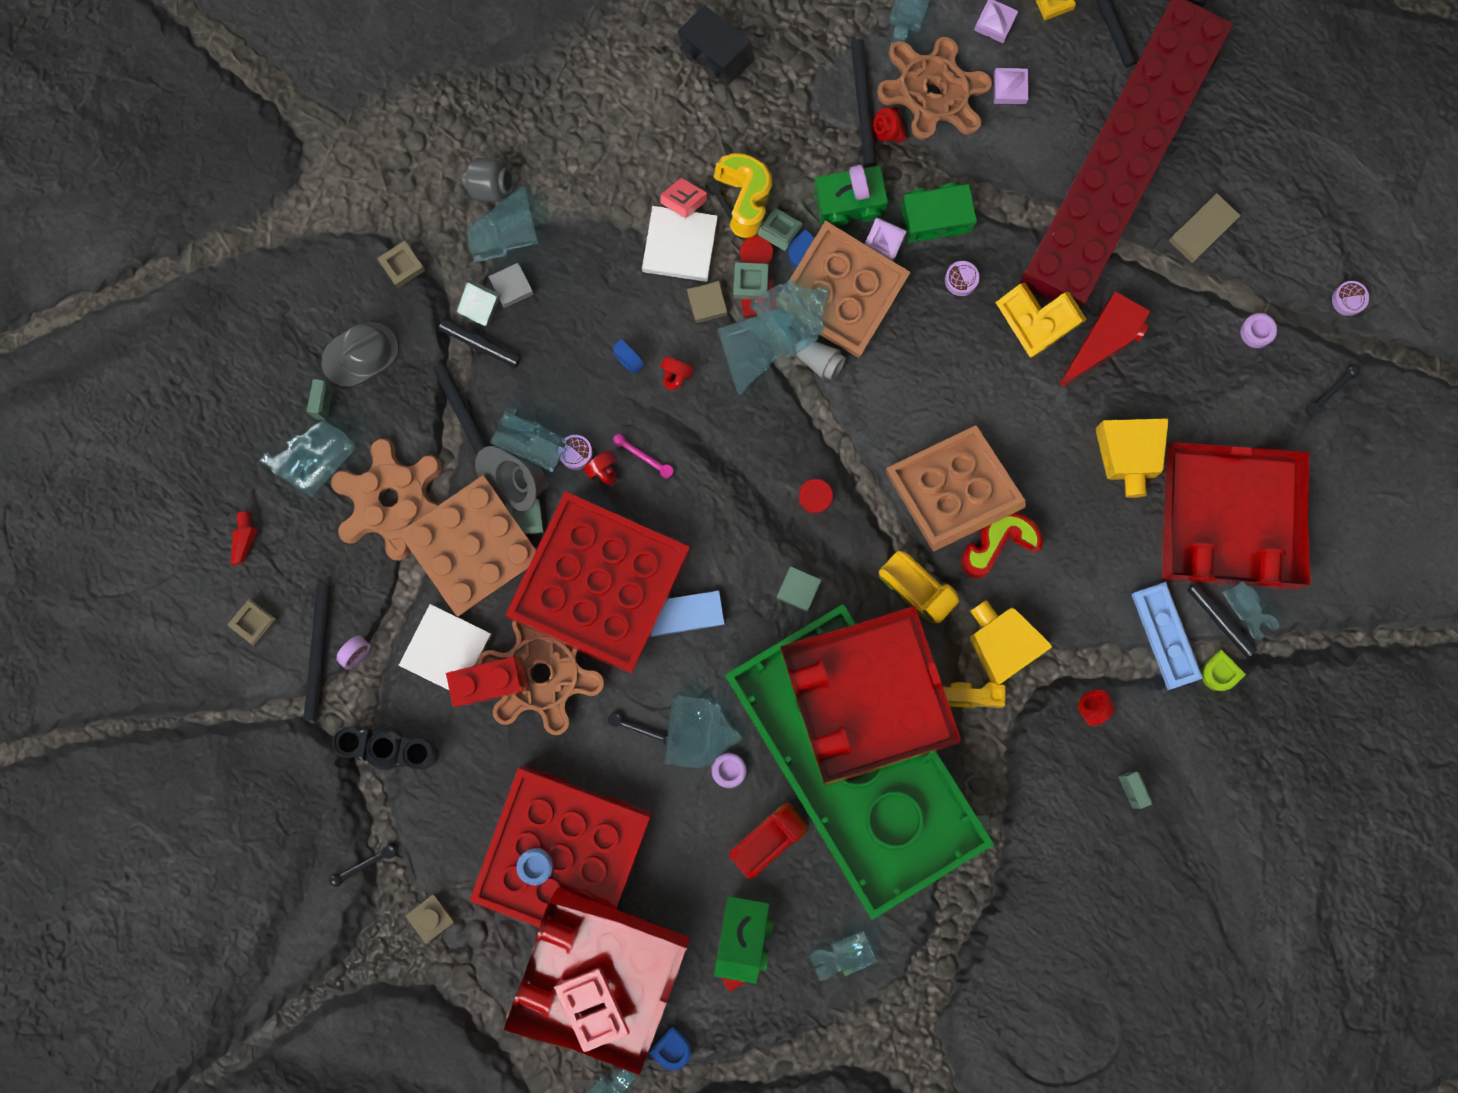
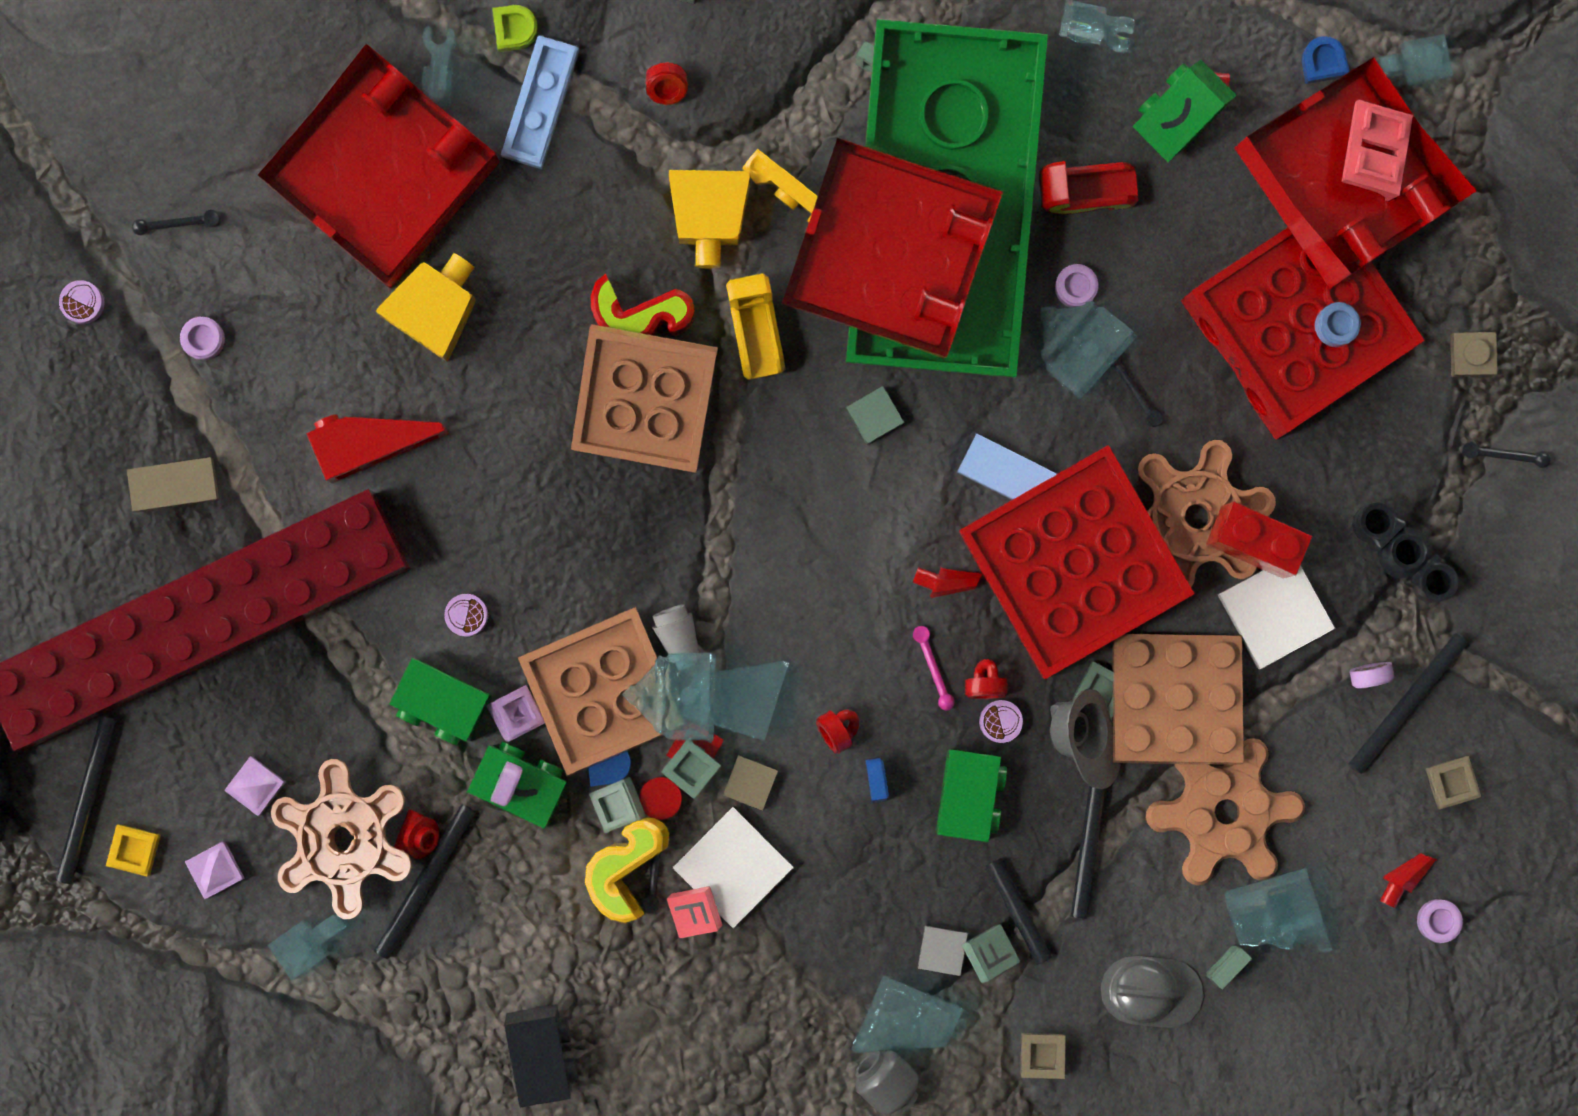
camera: 145 degrees left, 5 degrees up
(202, 527) = (1439, 921): none -> lavender tile
(528, 440) = (1043, 764): clear light blue slope -> none
(562, 389) = (969, 796): none -> green brick
(675, 515) = (946, 581): none -> red bar
(815, 496) = (788, 497): red tile -> none
(1038, 326) = (433, 510): yellow tile -> none
(1222, 620) = (472, 77): black piece -> none

